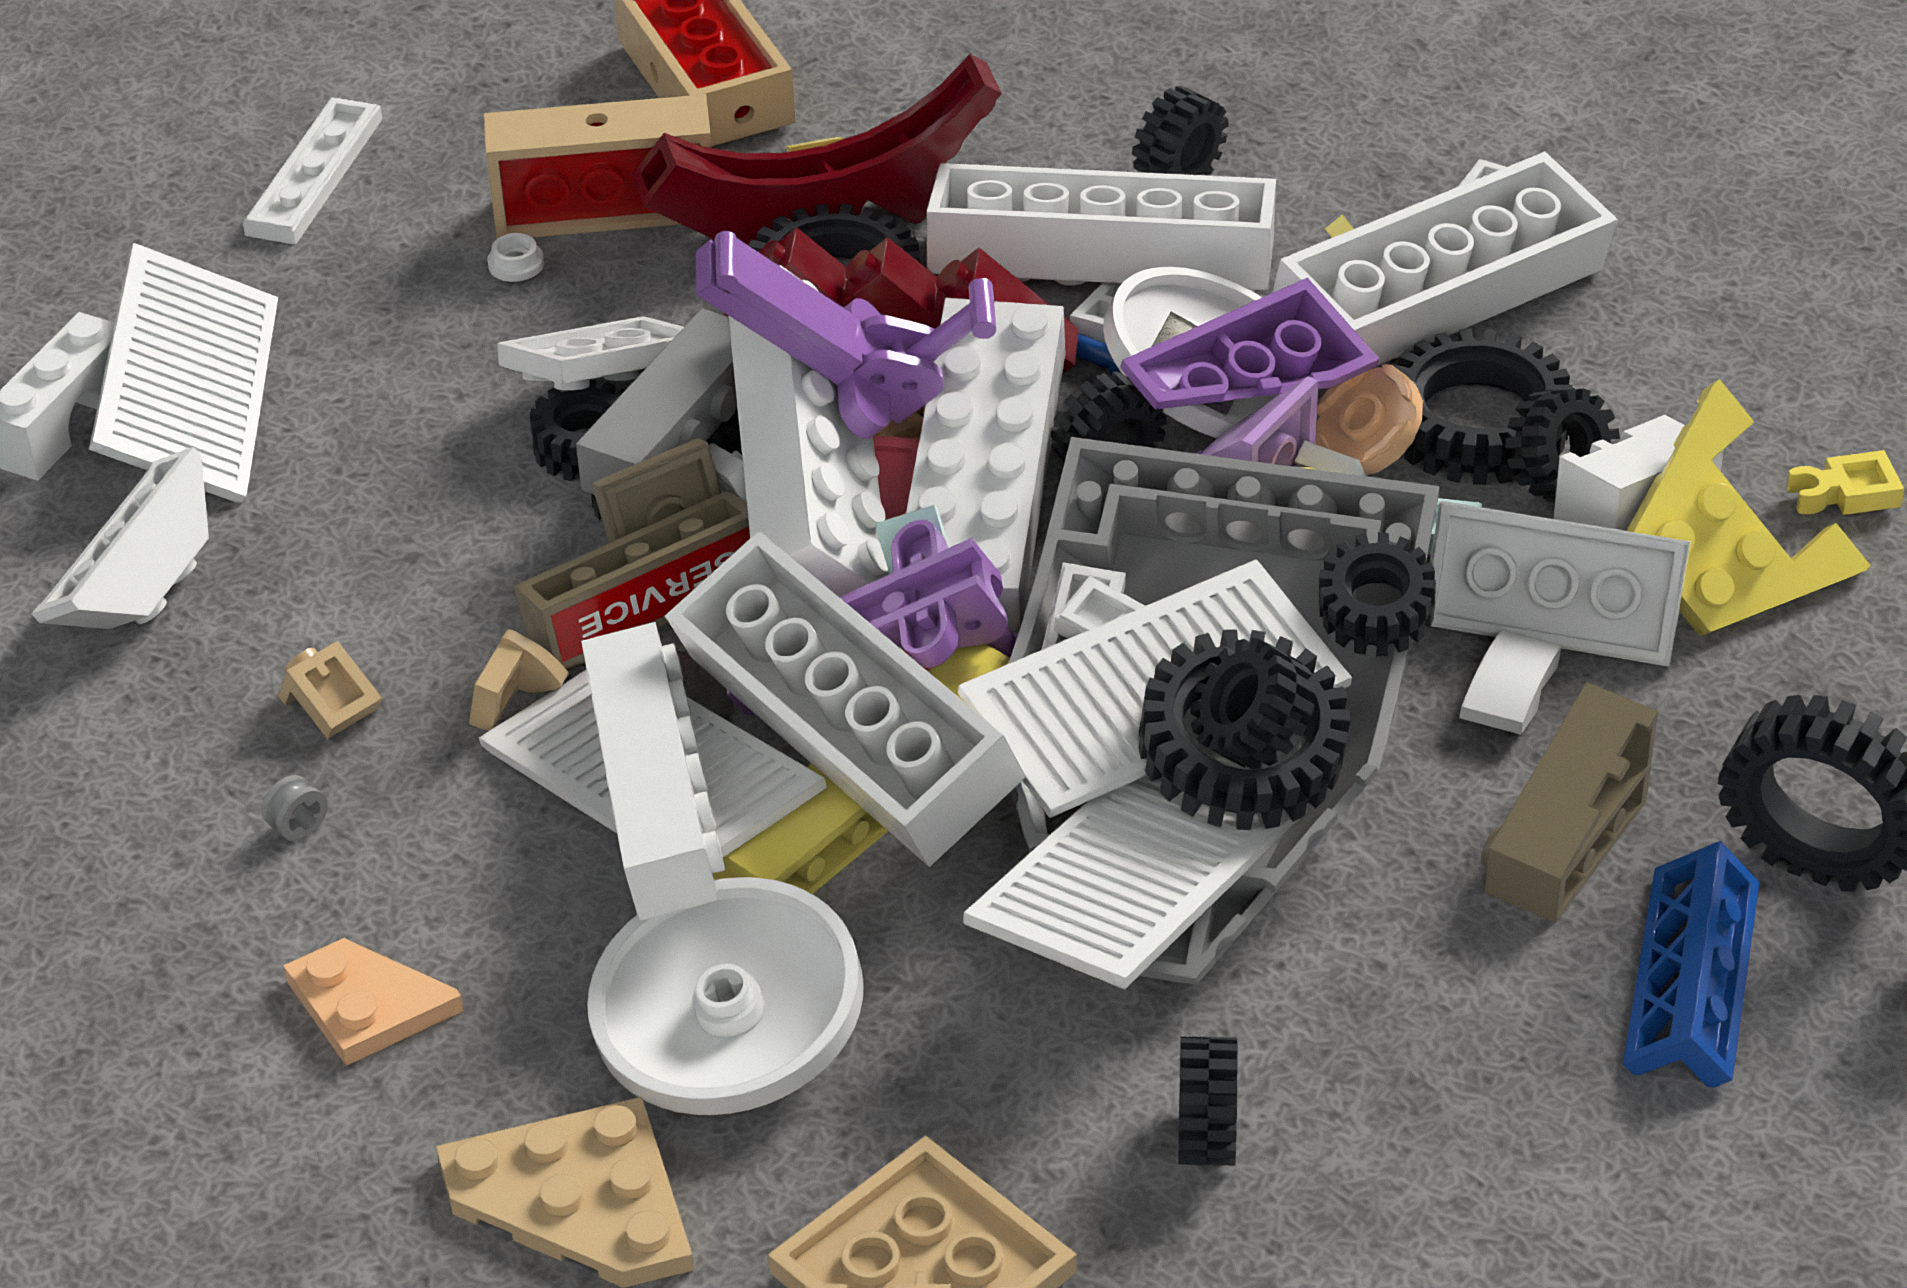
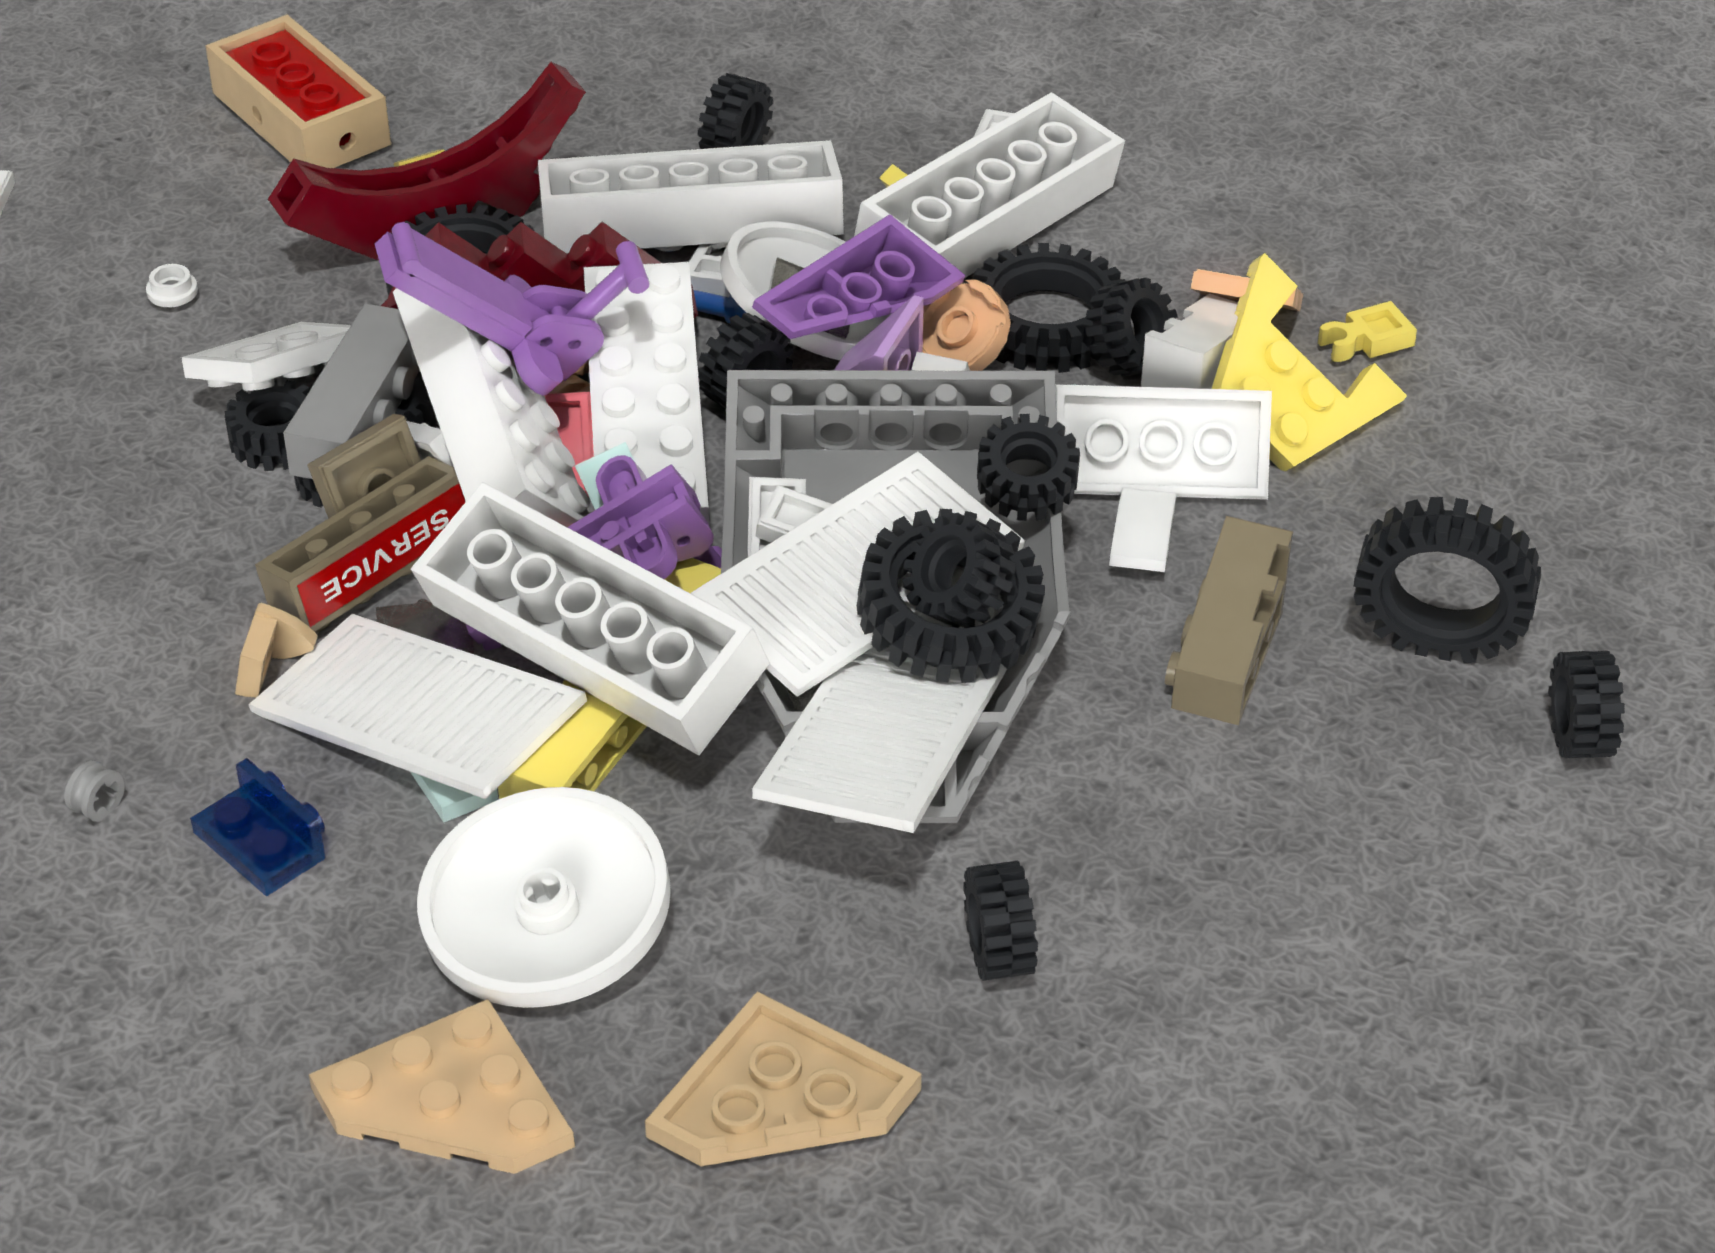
camera: 15 degrees left, 0 degrees up
(329, 688) = (99, 680): tan bracket -> none
(367, 998) = (205, 952): light nougat wing -> none
(456, 877) = (262, 830): none -> clear blue bracket
(576, 163) = (215, 197): brick -> none
(653, 771) = (429, 708): white brick -> none
(1683, 405) = (1233, 287): none -> light nougat tile
(1711, 962) = (1379, 729): blue fence -> none

